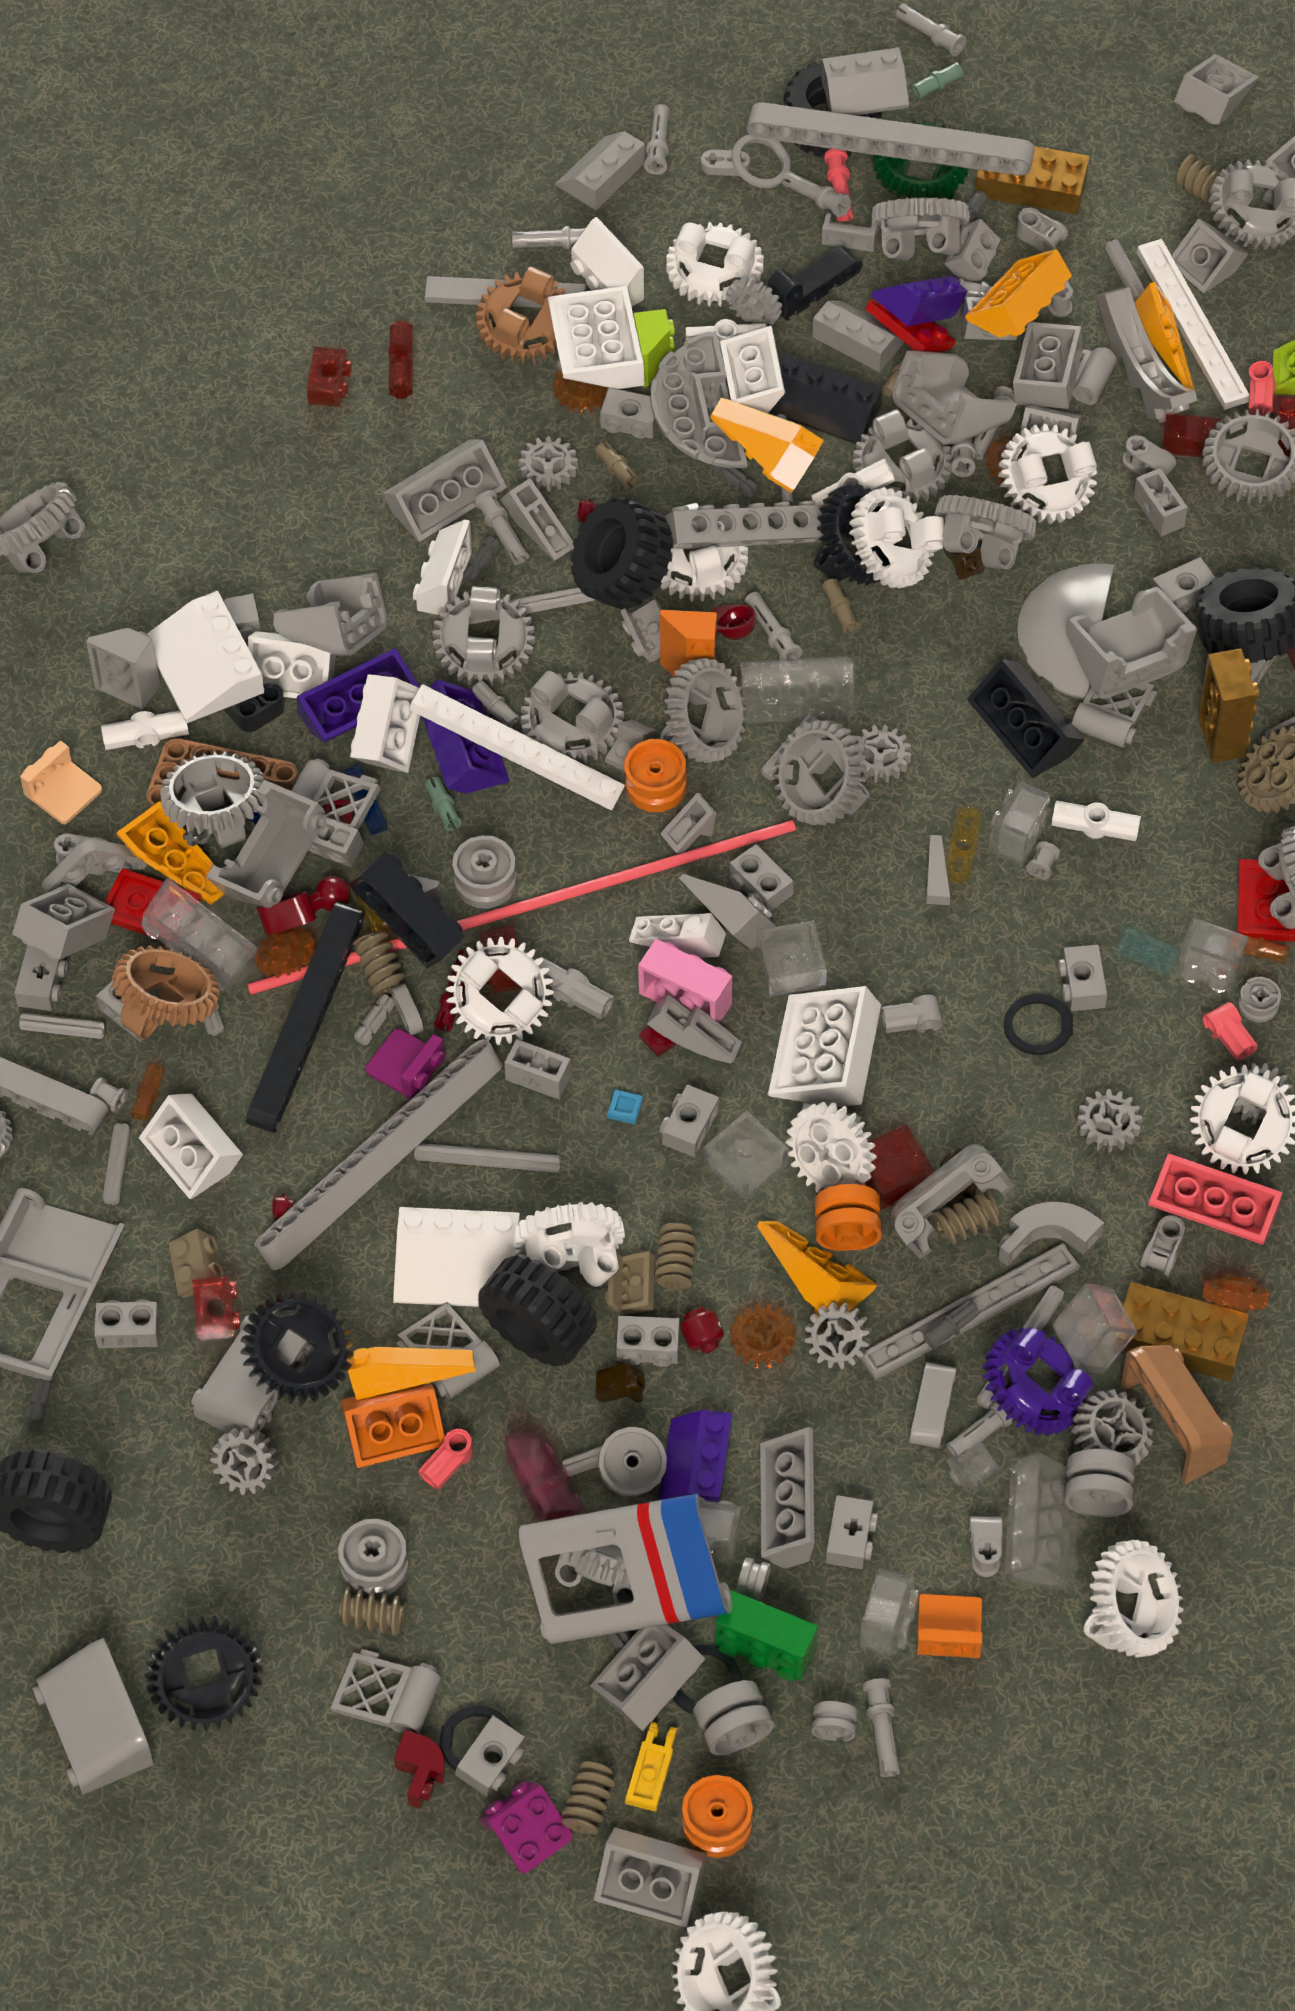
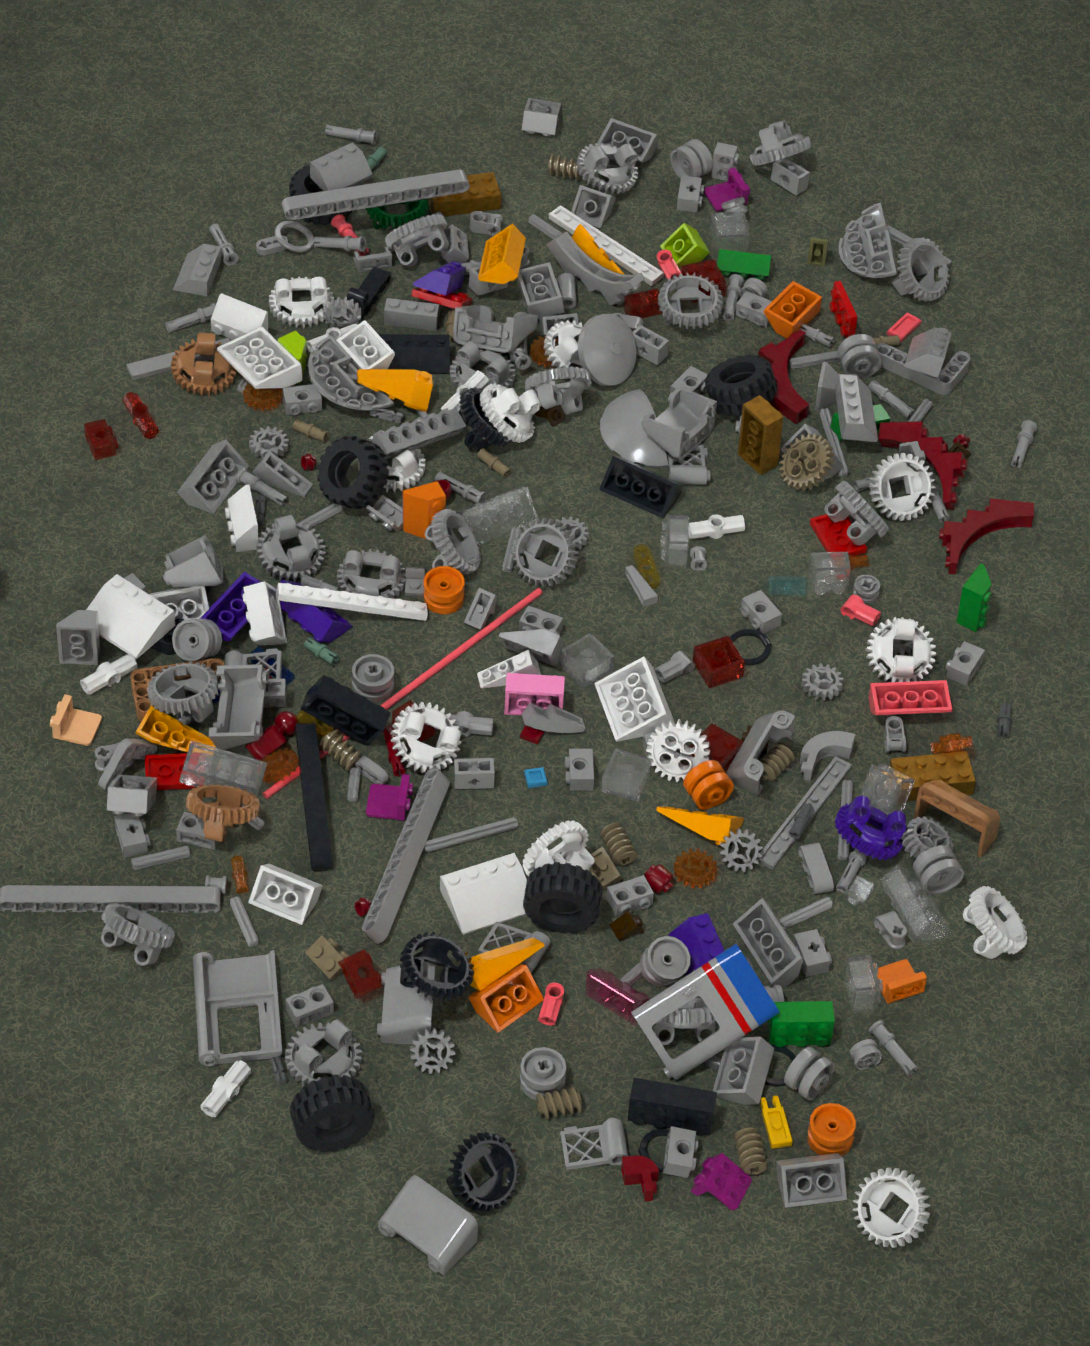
camera: 30 degrees left, 10 degrees down
(112, 1429) = (305, 1061): none -> light grey piece
(277, 725) = (197, 639): none -> light grey wheel
(515, 1685) = (671, 1105): none -> black brick
(881, 1466) = (806, 912): none -> light grey axle
(975, 1032) = (718, 661): none -> clear red brick
(1087, 491) = (607, 349): none -> light grey dish

